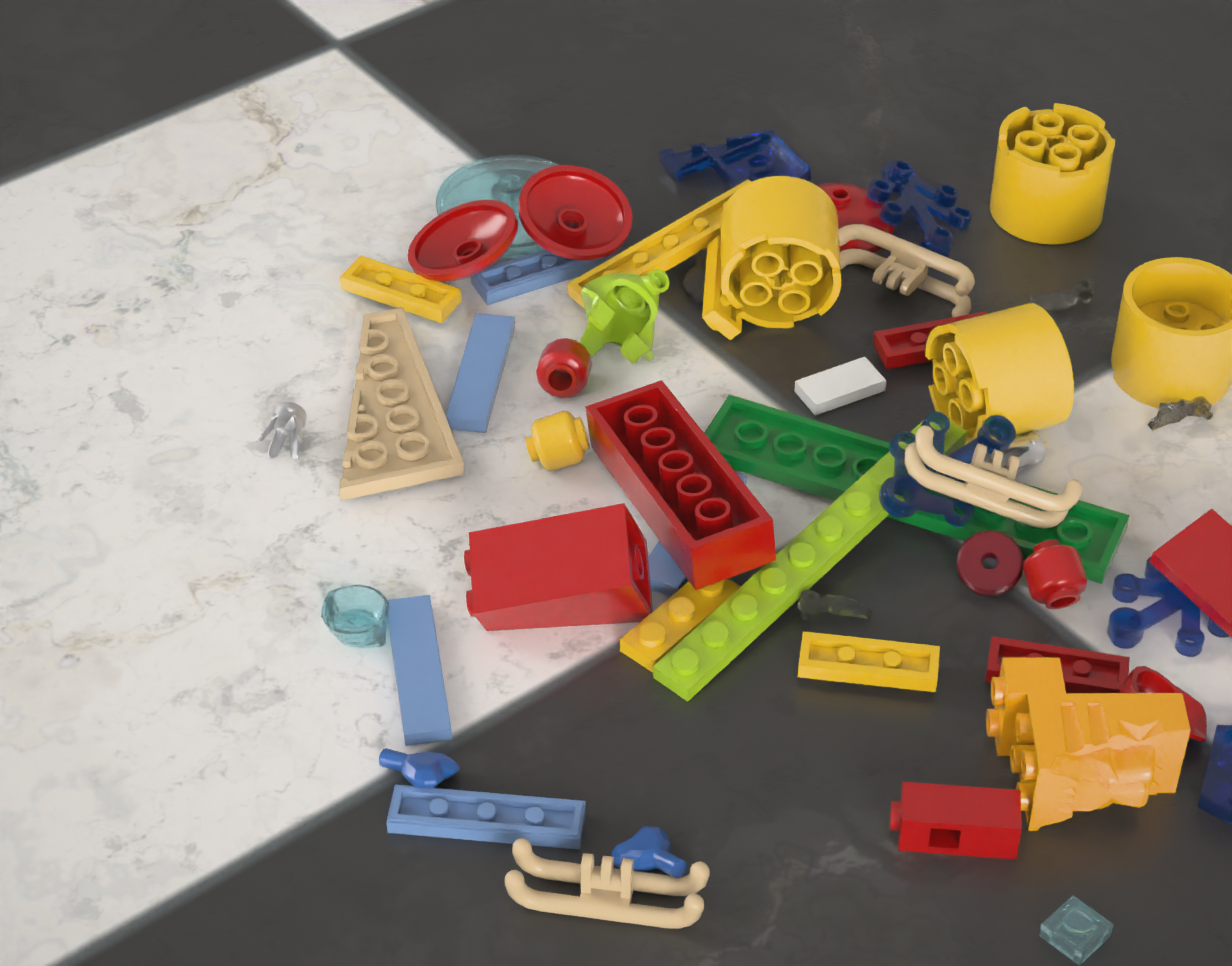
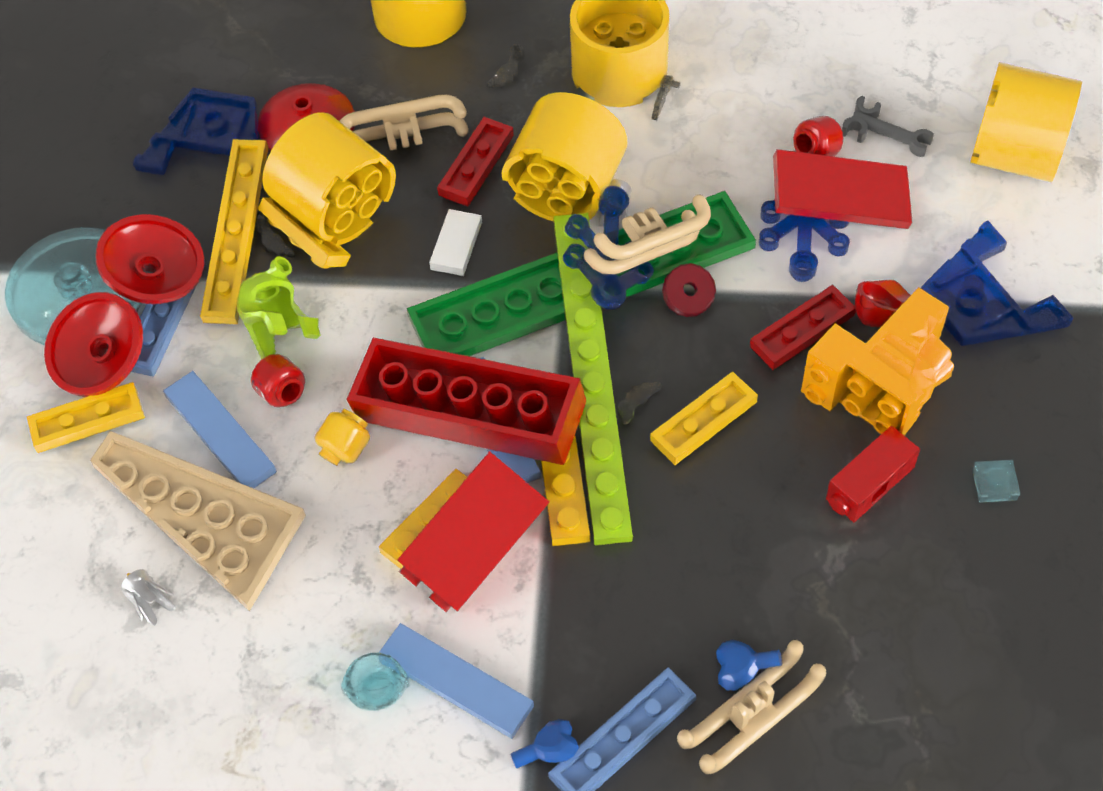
camera: 45 degrees left, 15 degrees up
(901, 178) = (311, 61): clear blue plant -> none
(1055, 574) = (736, 266): red head -> none

